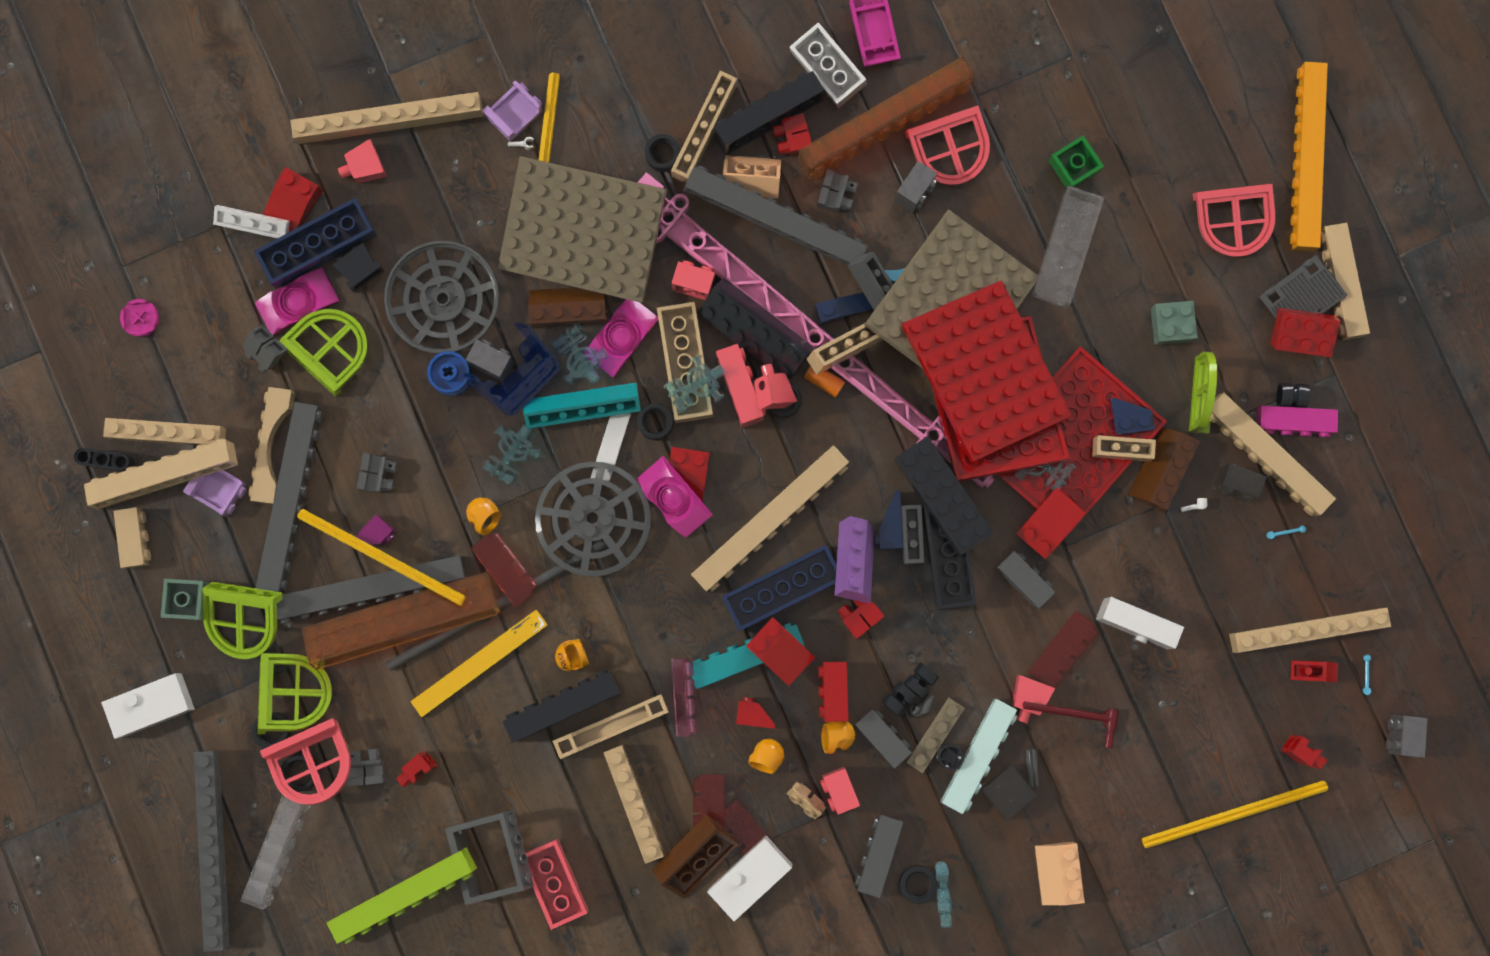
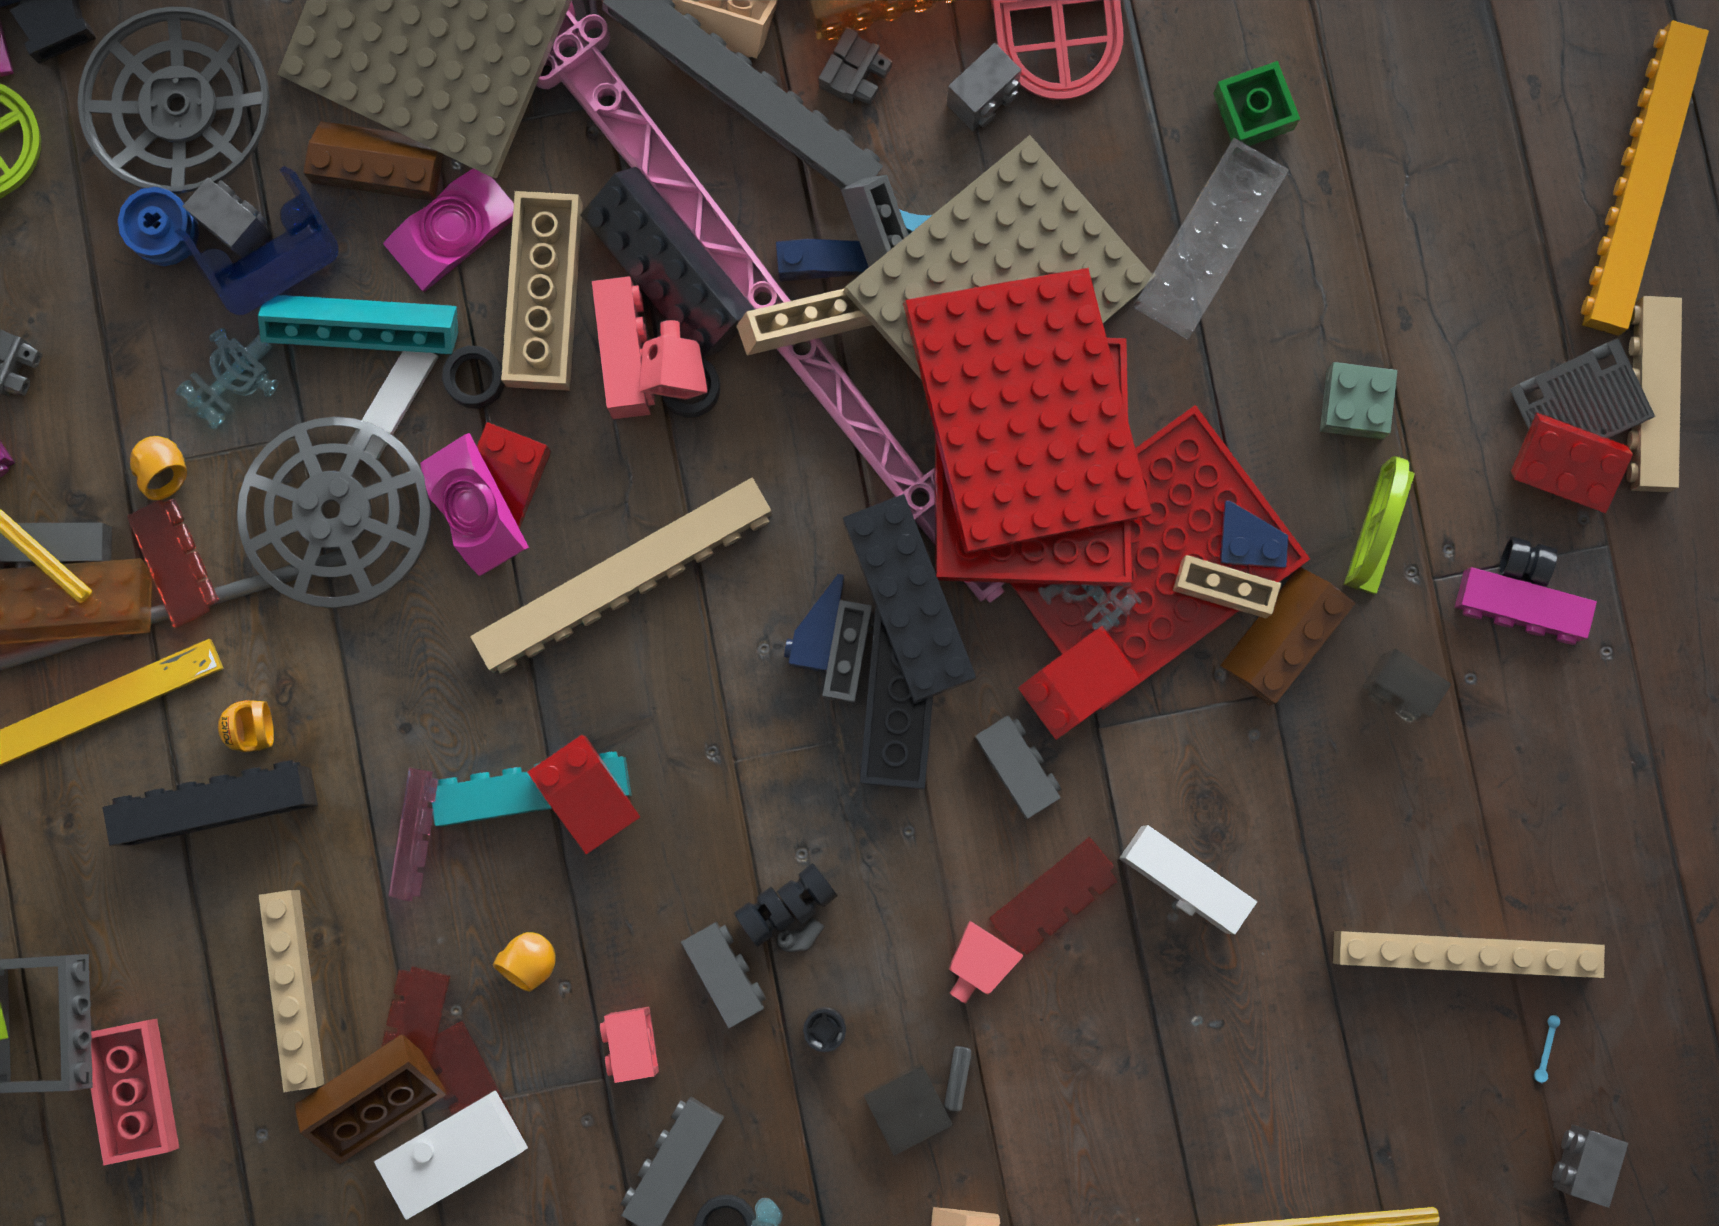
camera: 15 degrees right, 0 degrees up
(581, 366) = (368, 251): clear light blue piece -> none
(610, 726) = (282, 856): tan arch -> none
(693, 280) = (584, 158): coral brick -> none
(712, 375) = (560, 315): clear light blue piece -> none
(752, 714) = (520, 888): red slope -> none
(781, 588) = (614, 692): dark blue brick -> none
(812, 807) = (579, 1058): tan hinge -> none
(825, 381) = (766, 372): orange brick -> none
(833, 691) = (658, 880): red brick -> none
(837, 735) = (650, 952): light orange helmet -> none
(853, 620) = (718, 768): red hips -> none
(855, 559) = (743, 672): medium lavender slope -> none
(935, 735) = (811, 989): dark tan plate -> none
(978, 756) = (873, 1039): light aqua brick -> none
(1109, 718) = (1103, 1025): dark red bar -> none
(1201, 504) = (1336, 707): white hand -> none
(1234, 196) = (1505, 213): coral window -> none
(1270, 456) = (1467, 652): tan brick -> none
(1270, 535) = (1440, 784): medium azure hinge -> none
(1297, 749) = (1411, 1159): red hips -> none
(1314, 671) = (1460, 1023): red slope -> none

